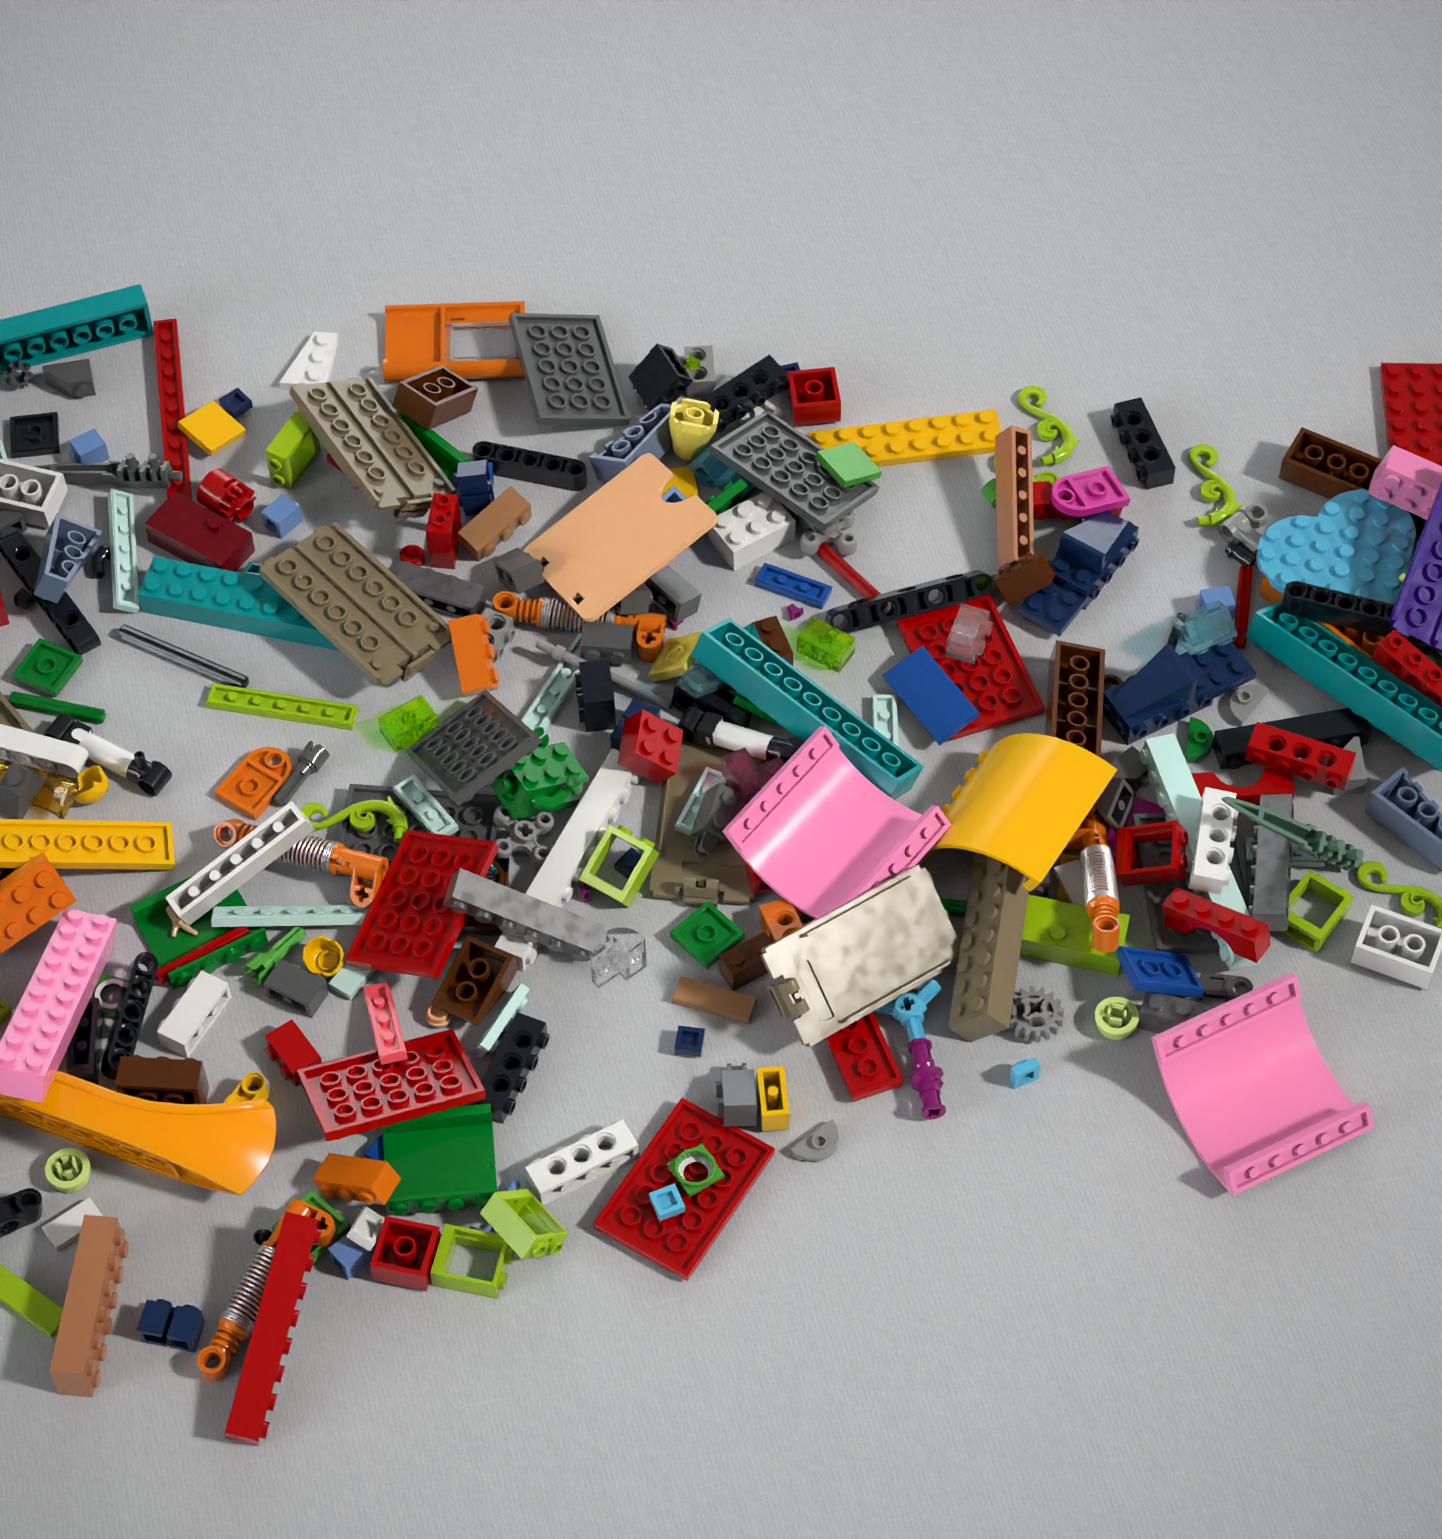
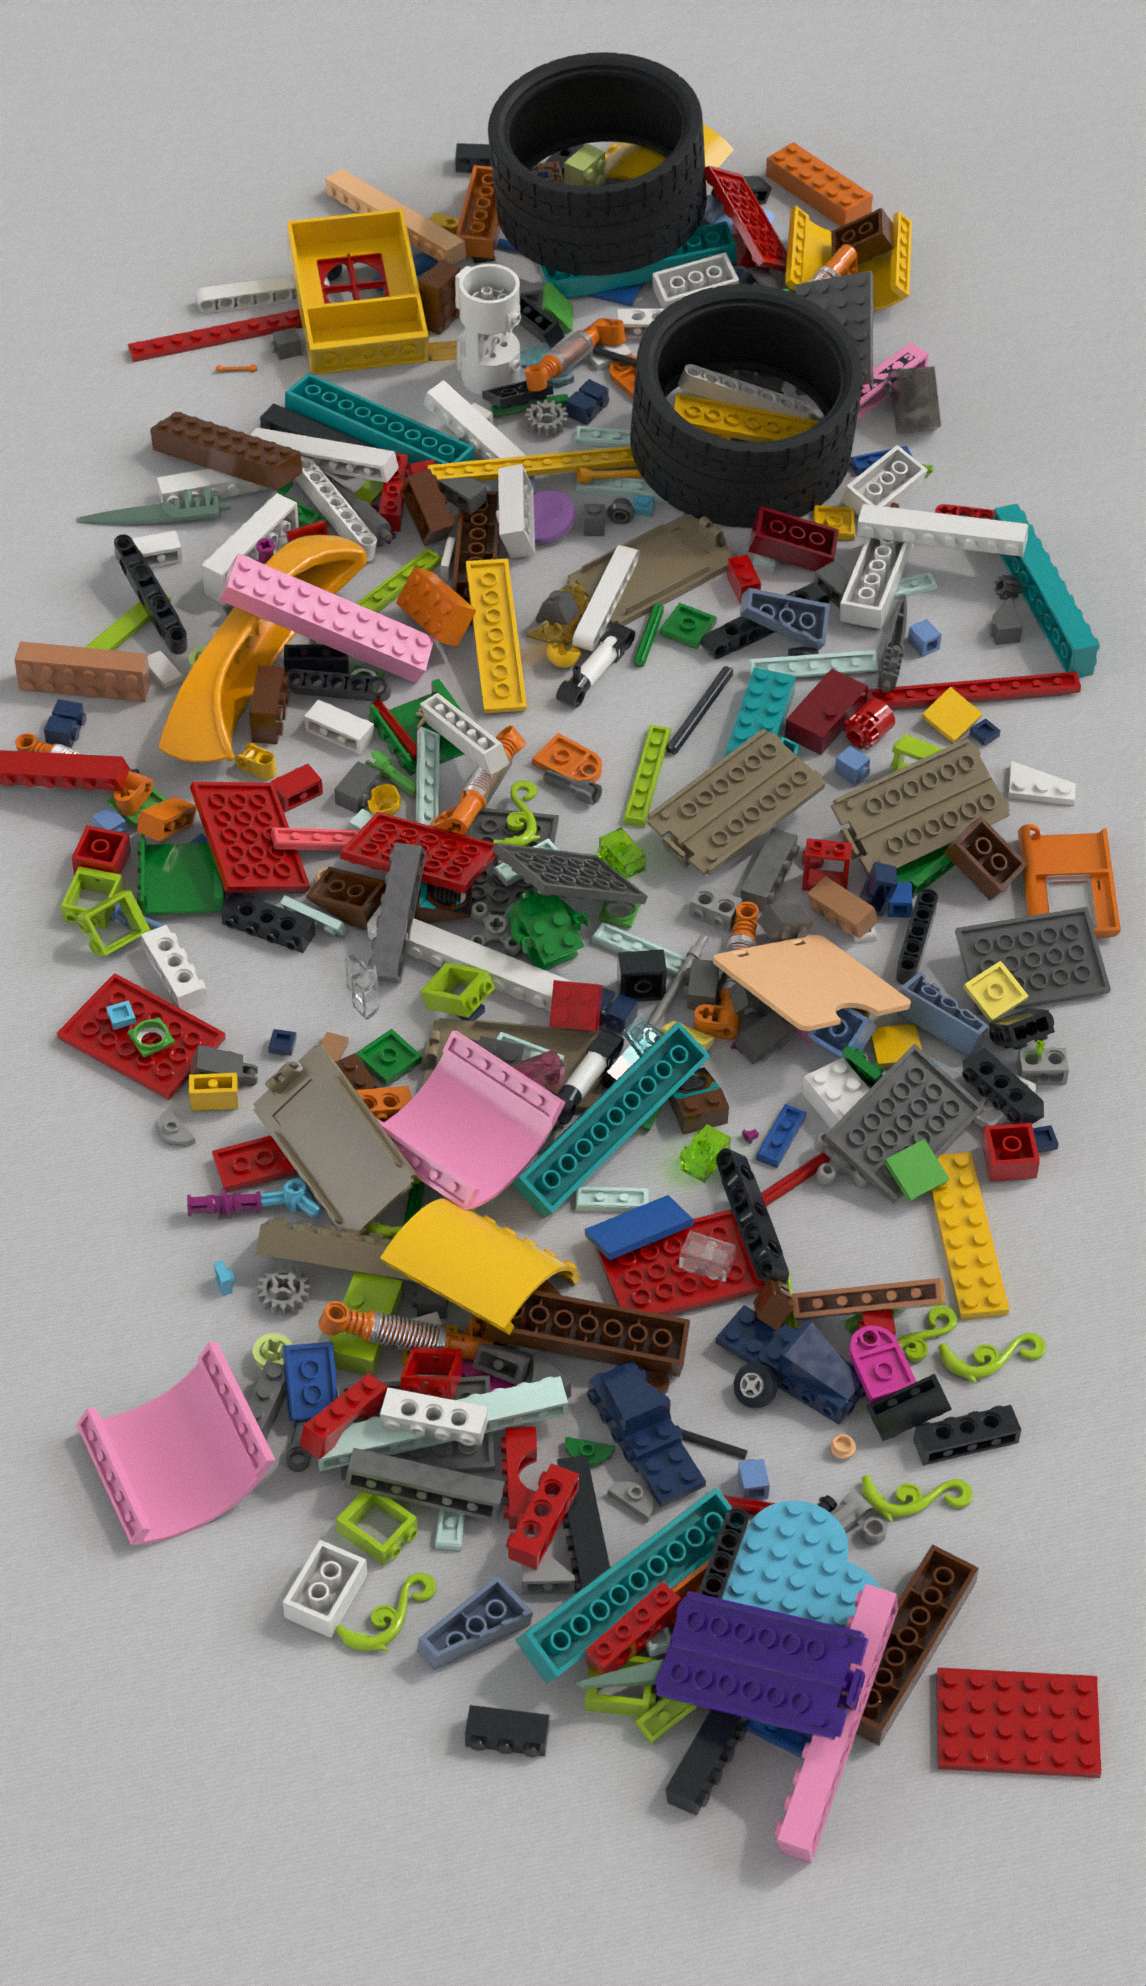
camera: 90 degrees right, 5 degrees down
(34, 435) = (945, 606): black tile -> none
(366, 1228) = (119, 822): white tile -> none
(473, 654) = (684, 886): orange brick -> none
(614, 397) = (995, 991): none -> light yellow plate
(691, 427) = (955, 1040): light yellow cone -> none
(1120, 604) = (746, 1385): none -> black wheel
(1130, 475) = (908, 1407): none -> black brick
(1165, 538) = (843, 1446): none -> light nougat plate
(1204, 627) = (710, 1452): clear light blue brick -> none
(1306, 836) = (436, 1499): sand green piece -> none

